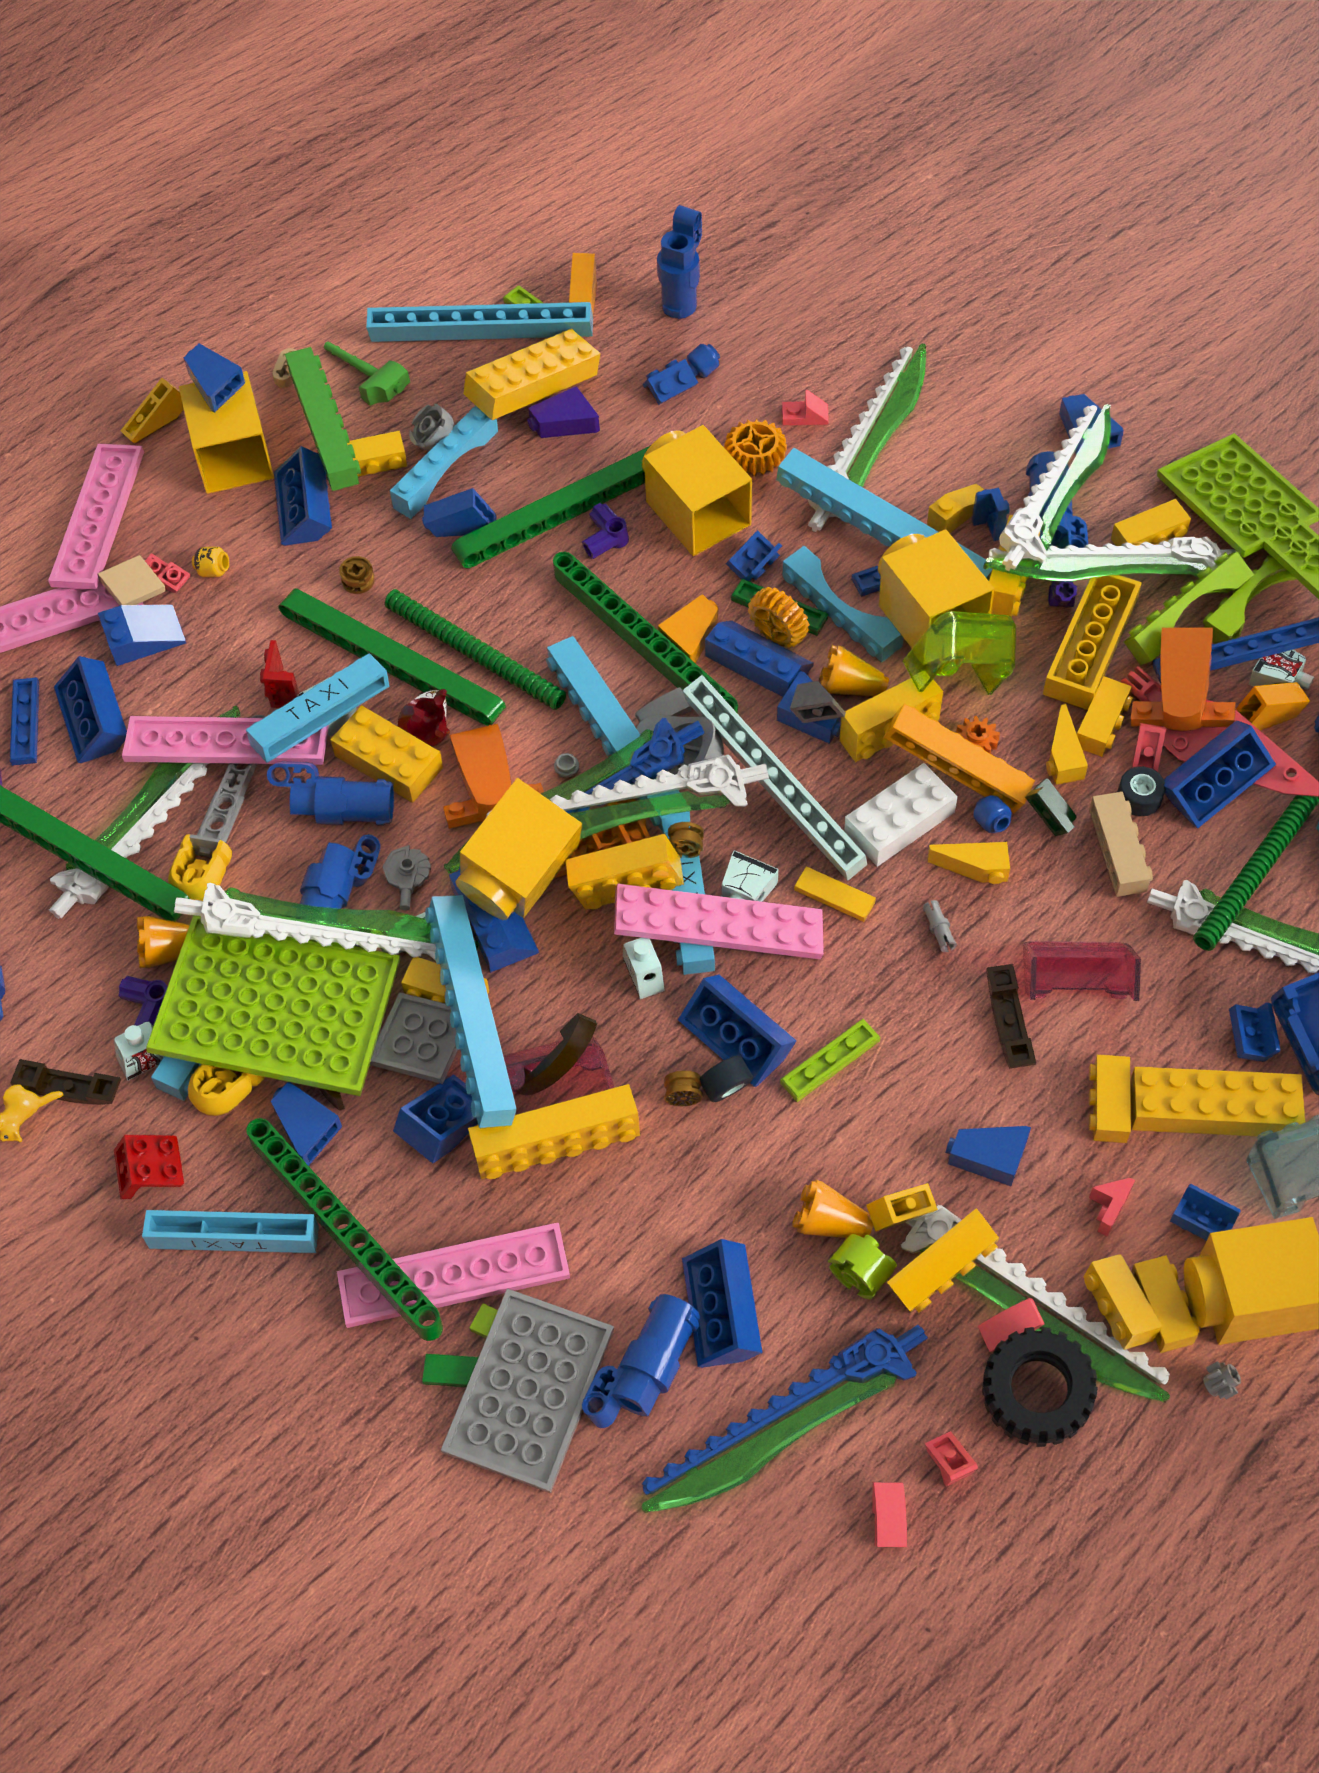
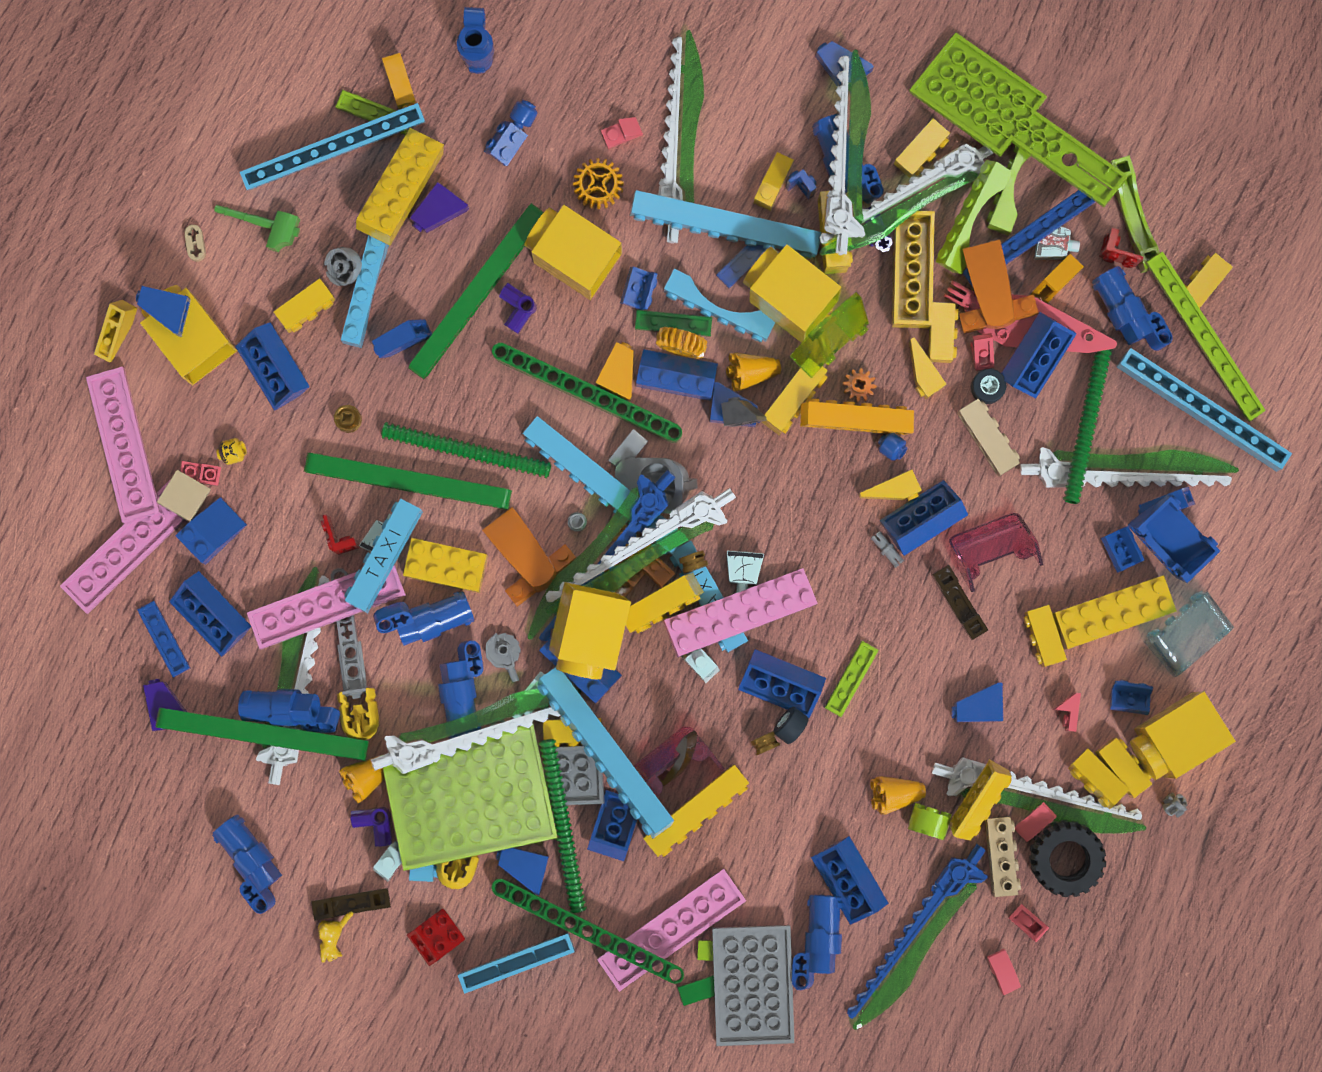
camera: 30 degrees left, 25 degrees up
(119, 827) = (288, 708): none -> blue piece
(322, 418) = (255, 293): bright green brick -> none
(375, 1087) = (562, 825): none -> green piece
(426, 717) = (461, 527): dark red piece -> none
(781, 783) = (727, 478): light aqua brick -> none
(835, 894) = (806, 551): yellow tile -> none
(900, 814) = (829, 472): white brick -> none
(901, 1207) = (940, 774): yellow slope -> none
(945, 1355) = (1001, 856): none -> tan brick
(1002, 907) = (924, 517): none -> blue slope
(1051, 808) = (932, 426): panel -> none

